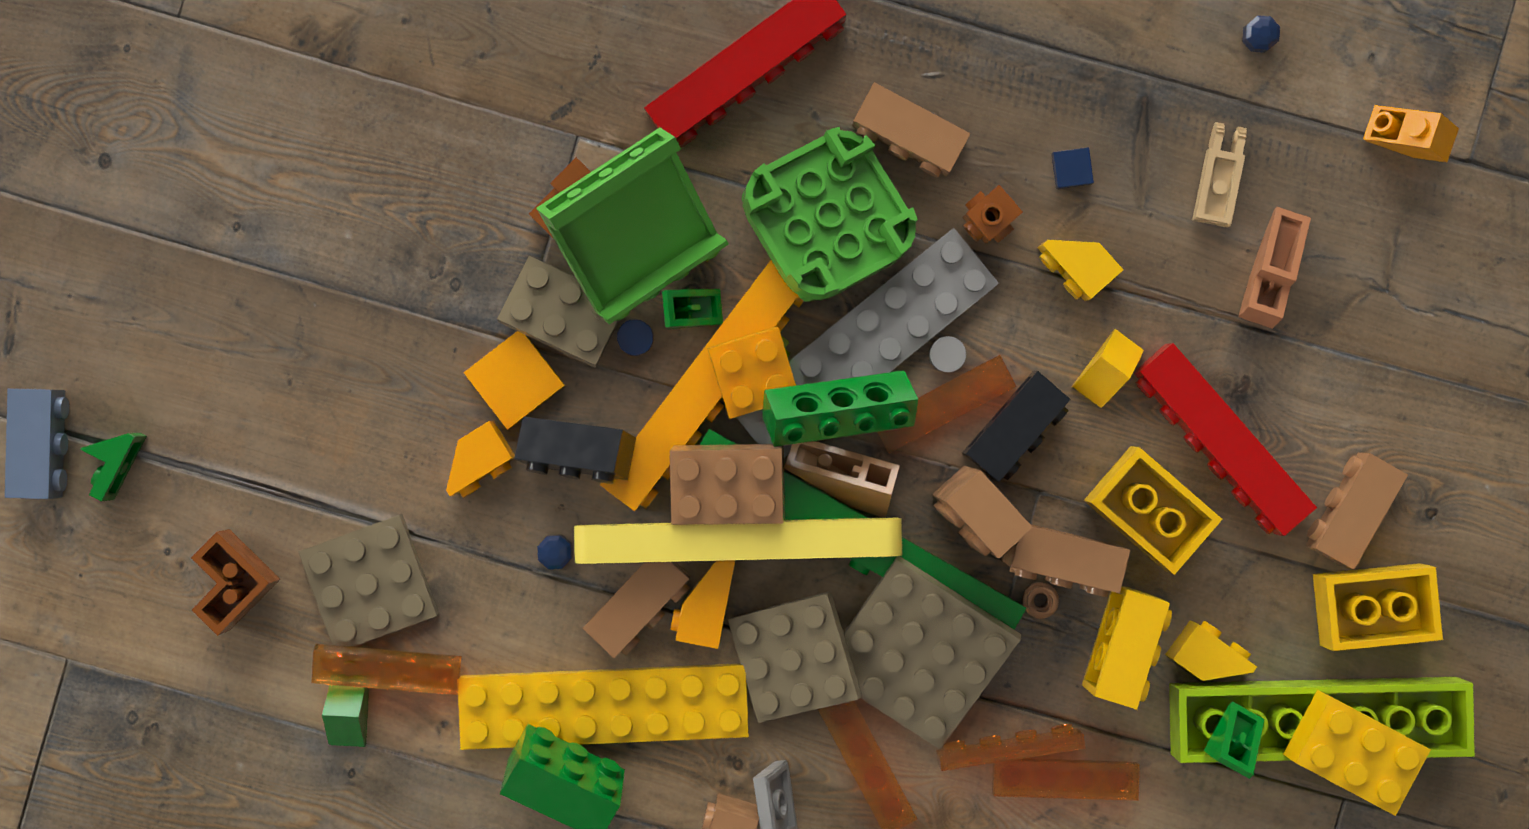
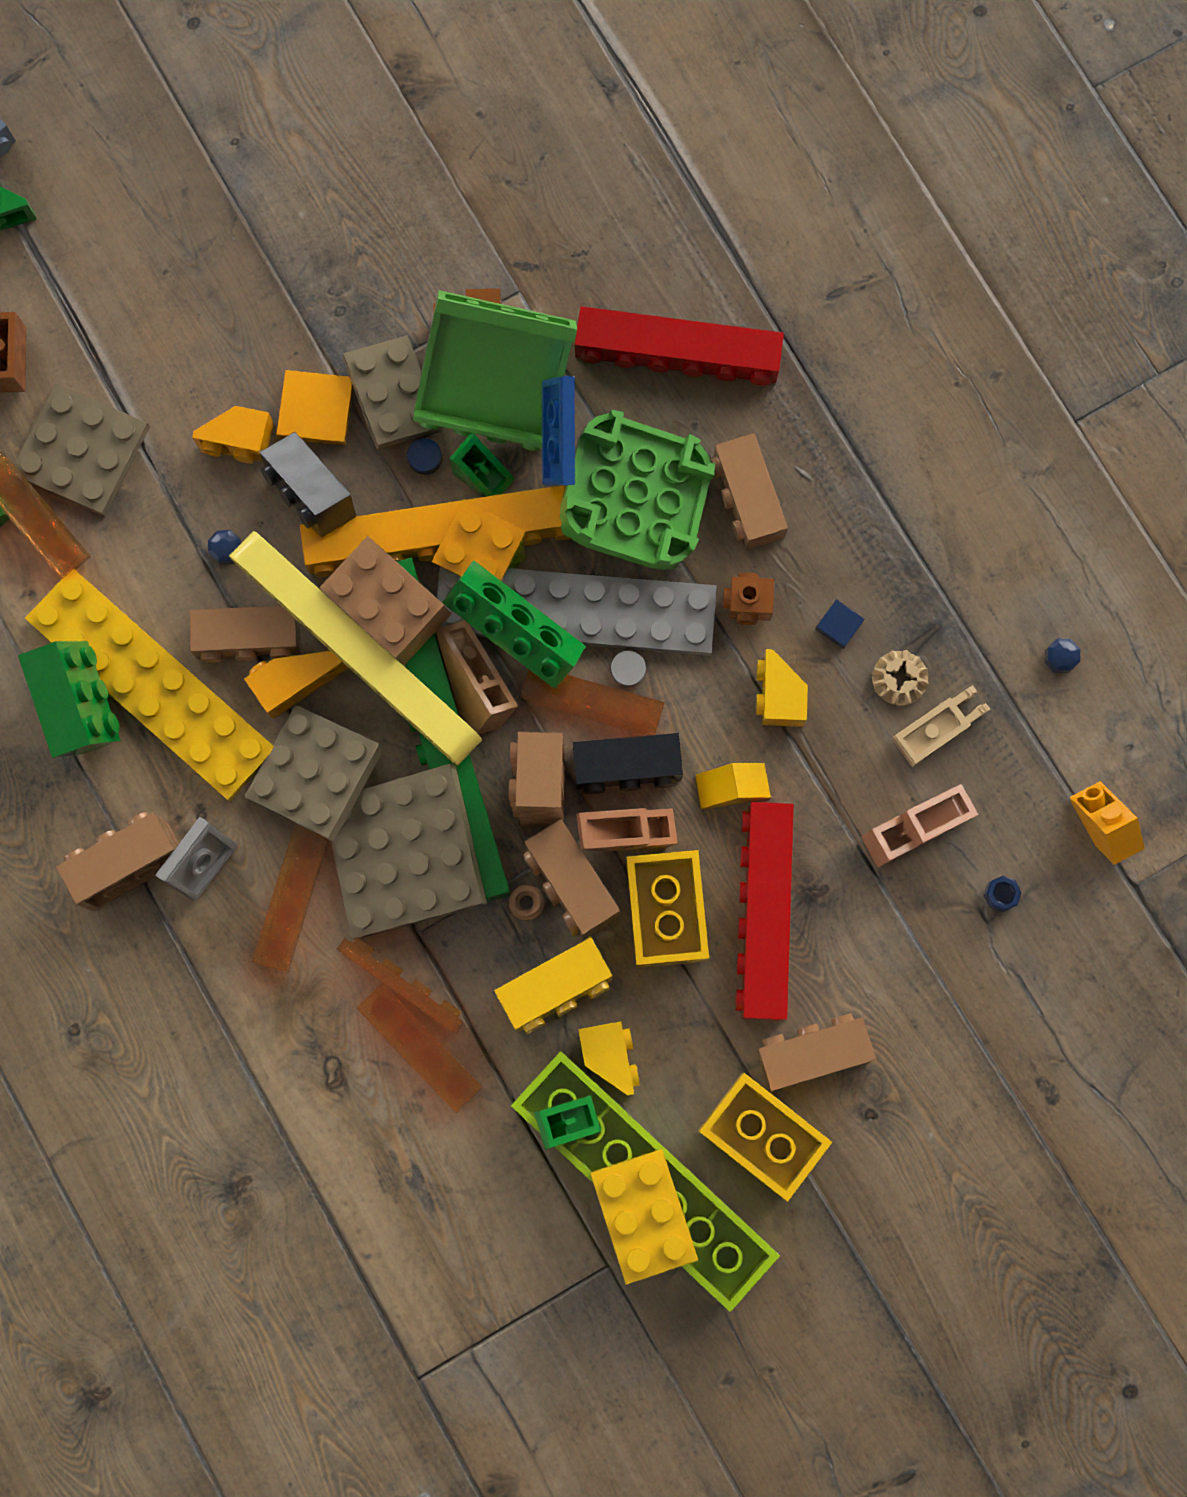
camera: 45 degrees right, 10 degrees down
(732, 228) = (558, 431): none -> blue tile
(1071, 481) = (627, 830): none -> nougat slope
(1152, 183) = (886, 685): none -> tan gear
(1382, 261) = (1002, 894): none -> dark blue tile

